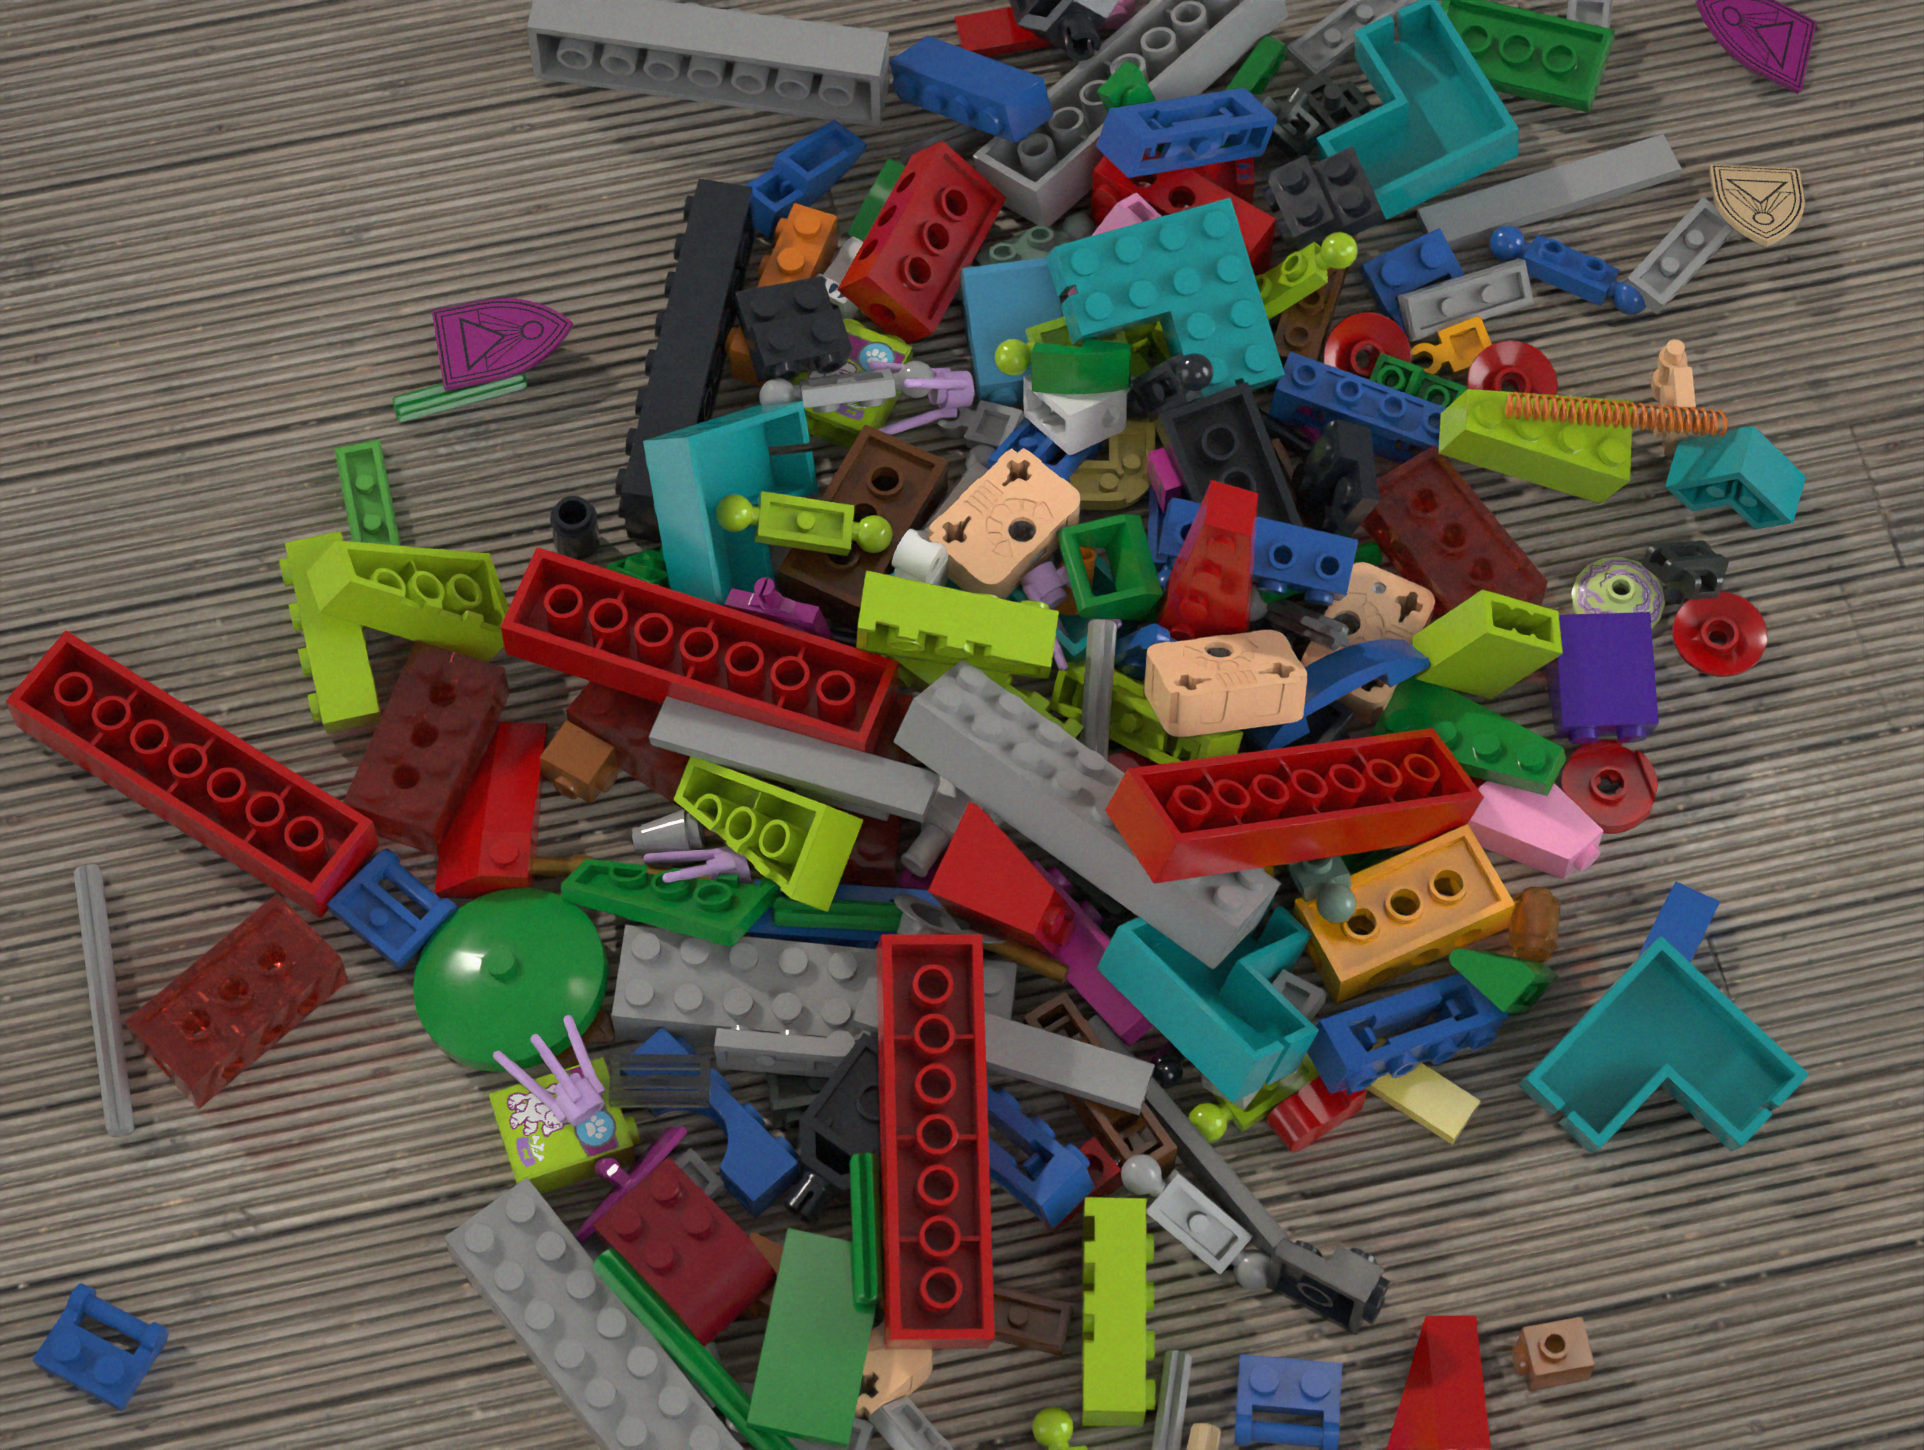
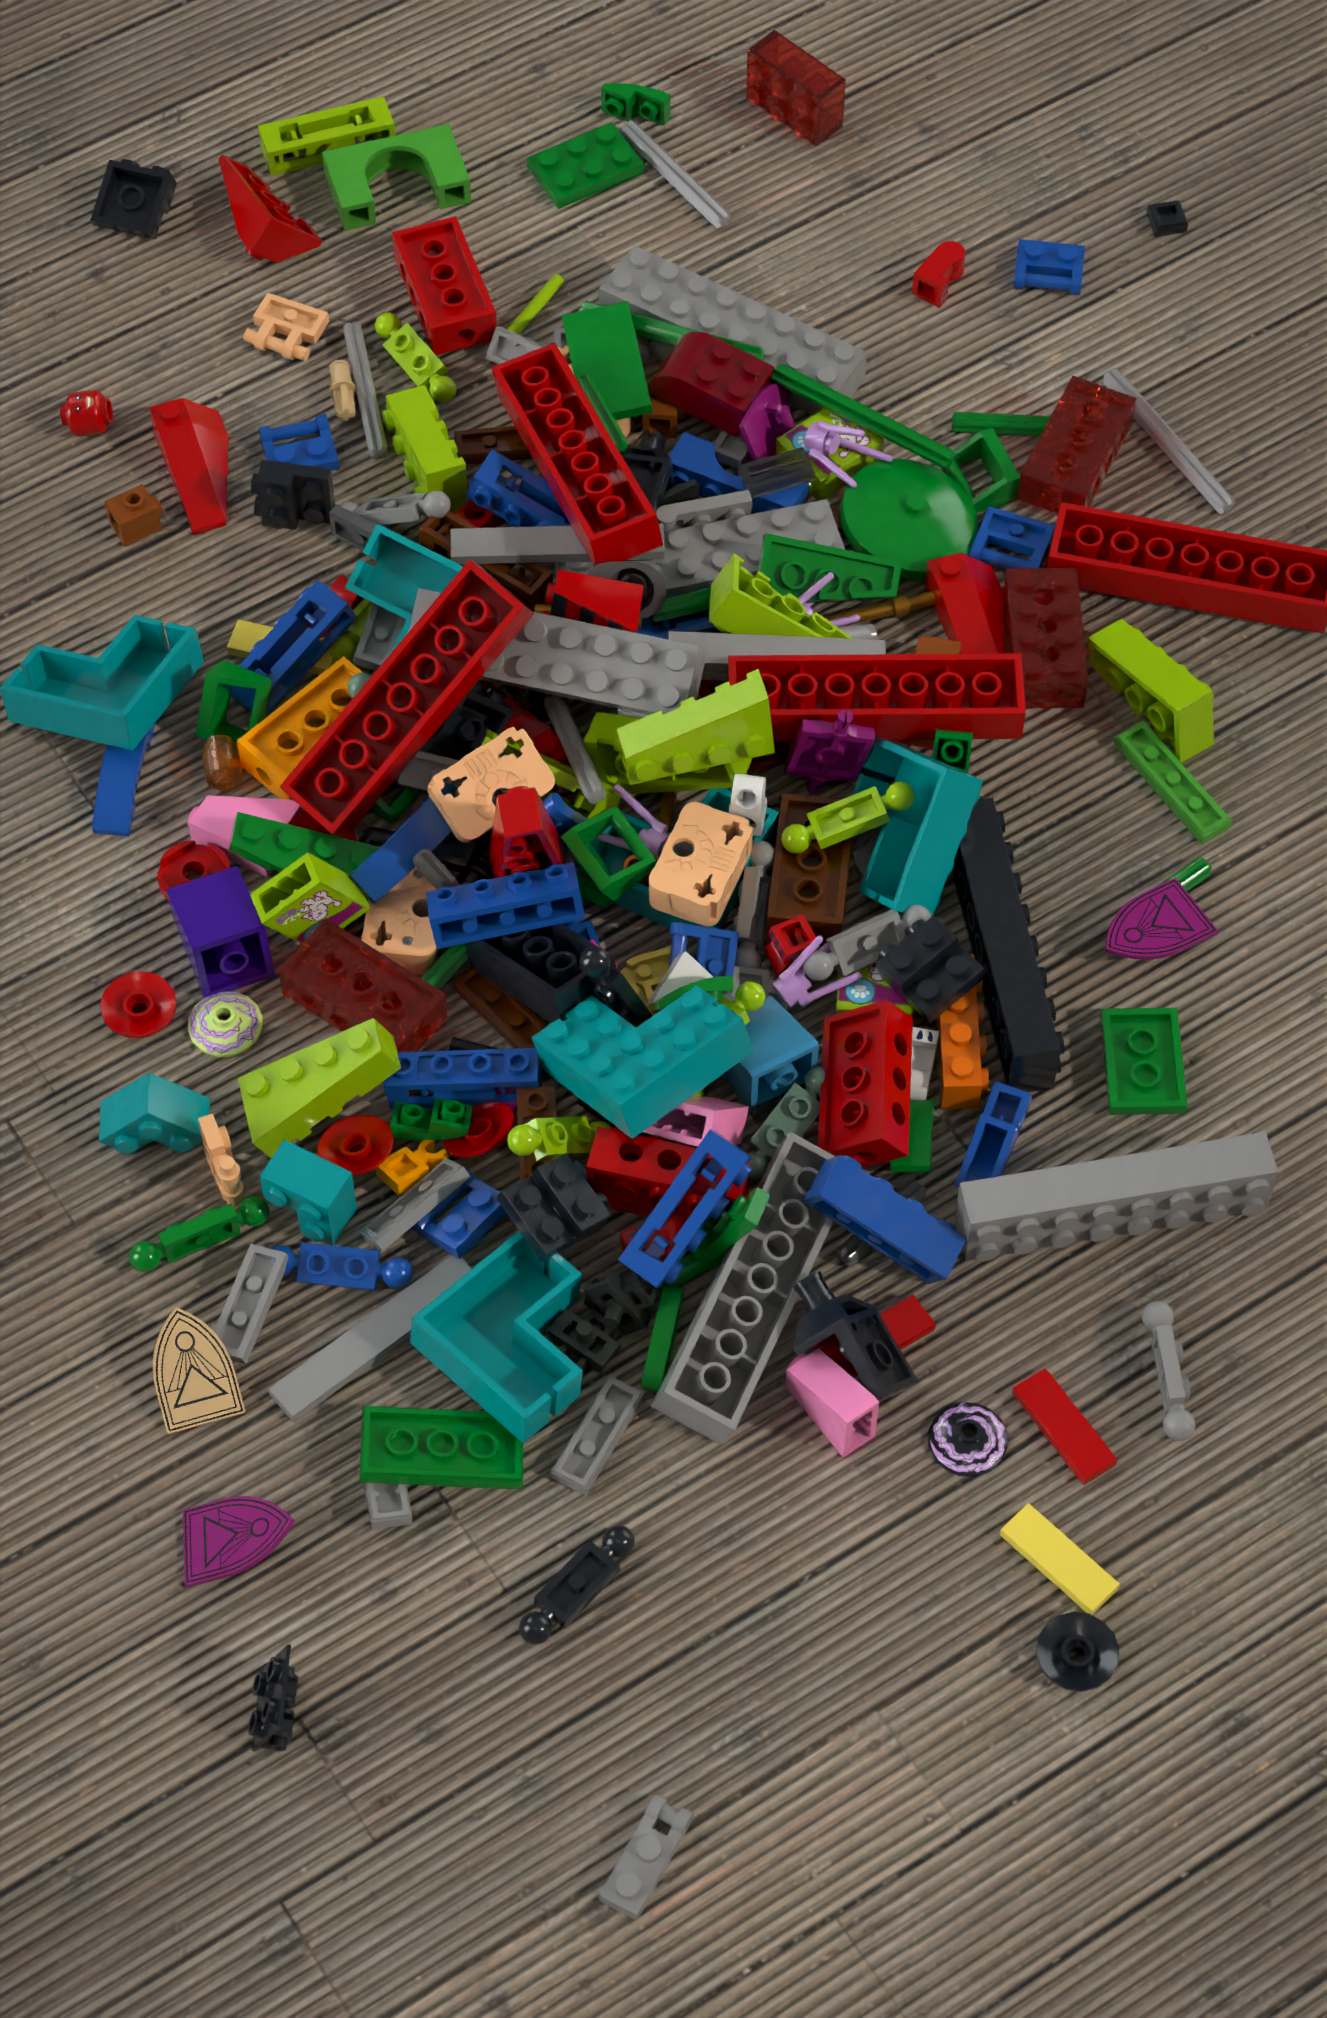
camera: 160 degrees right, 5 degrees down
(262, 1385) = (937, 272): none -> red leg
(307, 1102) = (1002, 423): none -> green axle
(349, 1061) = (1006, 479): none -> green tile
(414, 594) = (1103, 697): lime wedge -> none
(504, 1127) = (863, 416): none -> green axle
(575, 527) = (1022, 806): black brick -> none
(593, 209) = (1143, 1061): none -> green plate
(933, 424) = (788, 942): none -> red leg
(1338, 479) = (465, 1003): black plate -> none
(1582, 321) = (312, 1187): none -> teal brick
(1688, 567) = (178, 1037): pearl dark grey piece -> none
(1705, 425) = (267, 1078): orange piece -> none
(1719, 346) = (199, 1233): none -> green plate

